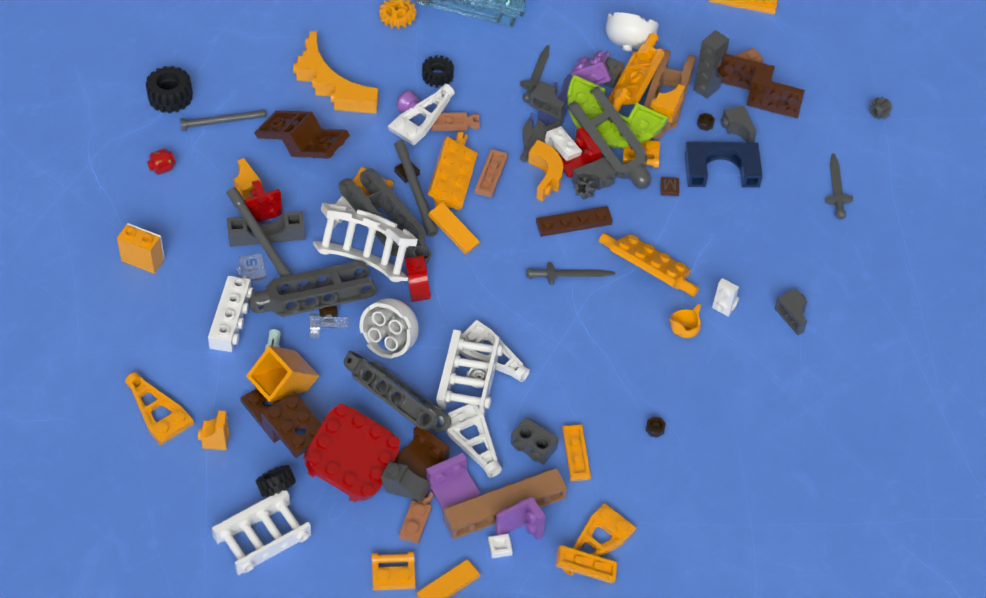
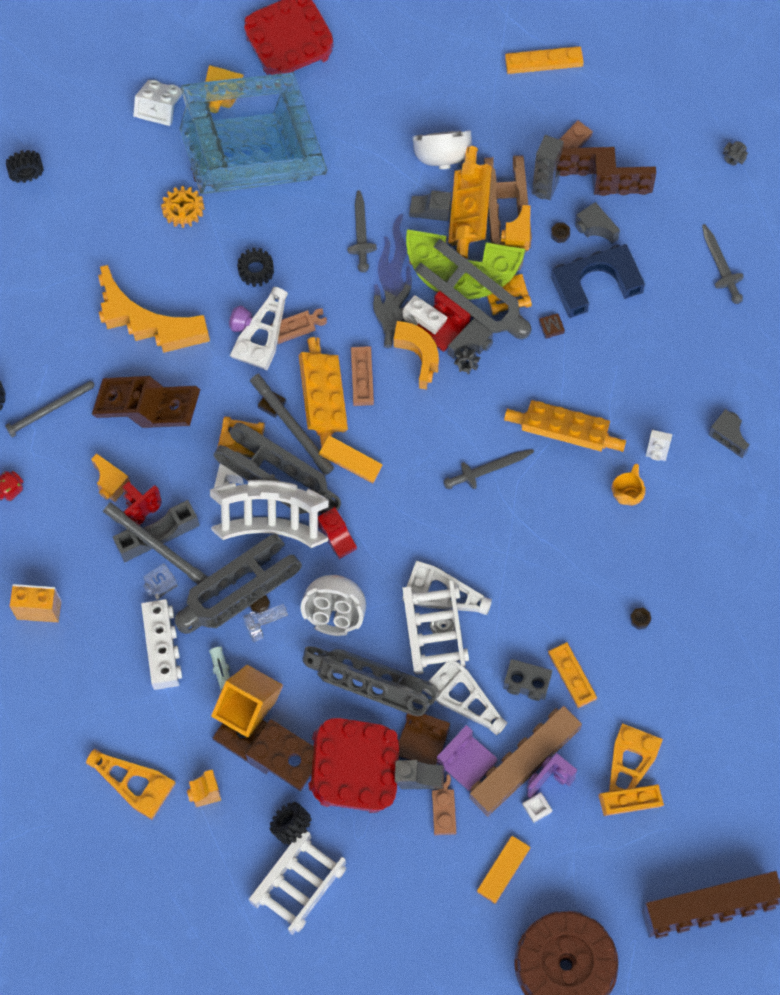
camera: 15 degrees left, 15 degrees up
(393, 577) = (447, 880): light orange plate -> none
(545, 100) = (386, 267): dark grey arch -> none
(574, 221) = (469, 403): reddish brown plate -> none
(593, 68) = (419, 211): medium lavender bracket -> none

